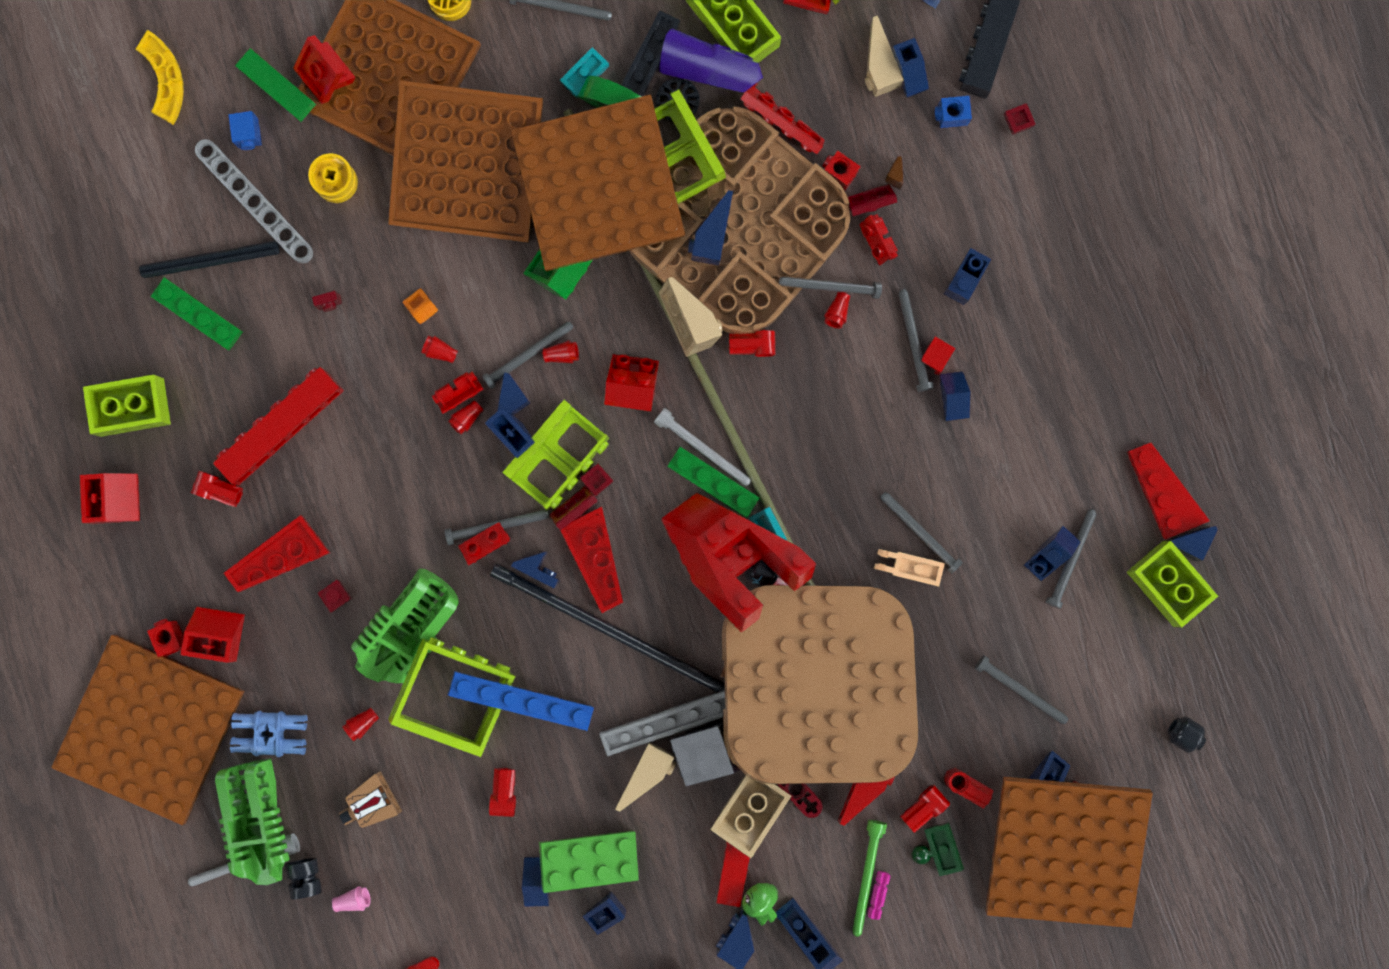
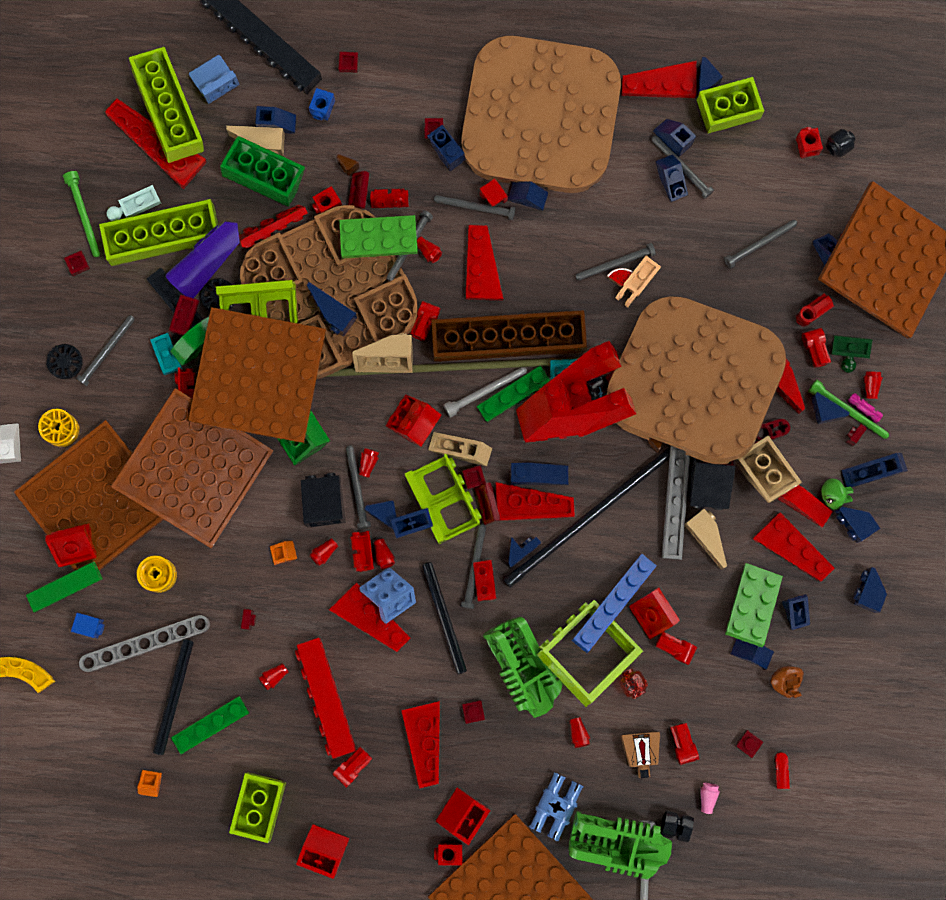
camera: 65 degrees left, 5 degrees down
(106, 277) = (149, 783): none -> orange slope
(277, 357) = (273, 676): none -> red cone
(390, 429) = (365, 615): none -> red wing
(395, 850) = (685, 748): none -> red piece
(422, 443) = (389, 593): none -> medium blue bracket
(424, 517) = (444, 618): none -> black axle
(431, 921) = (749, 744): none -> dark red plate
(440, 762) = (633, 684): none -> clear red head
(494, 322) = (322, 500): none -> black slope
(519, 935) = (787, 681): none -> dark orange piece
(531, 752) = (654, 613): none -> red bracket
(563, 105) = (185, 379): none -> red hinge
(622, 450) = (460, 448): none -> tan slope
(632, 552) = (538, 474): none -> dark blue slope
(635, 71) = (184, 315): none -> dark red plate
(679, 873) = (787, 542): none -> red wing
(776, 446) = (509, 336): none -> reddish brown brick
(824, 246) = (378, 236): none -> bright green plate
(841, 382) = (481, 266): none -> red wing
(841, 897) = (855, 434): none -> dark red plate
(843, 80) = (262, 171): none -> green slope
(854, 851) = (826, 410): none -> dark blue slope
(907, 543) = (619, 276): none -> red tile
(910, 892) = (872, 384): none -> red cone
(988, 248) = (432, 124): none -> dark red plate
(1060, 367) = (541, 113): none -> medium nougat plate
(1104, 535) = (675, 136): none -> dark blue slope
(1160, 699) = (805, 149): none -> red brick

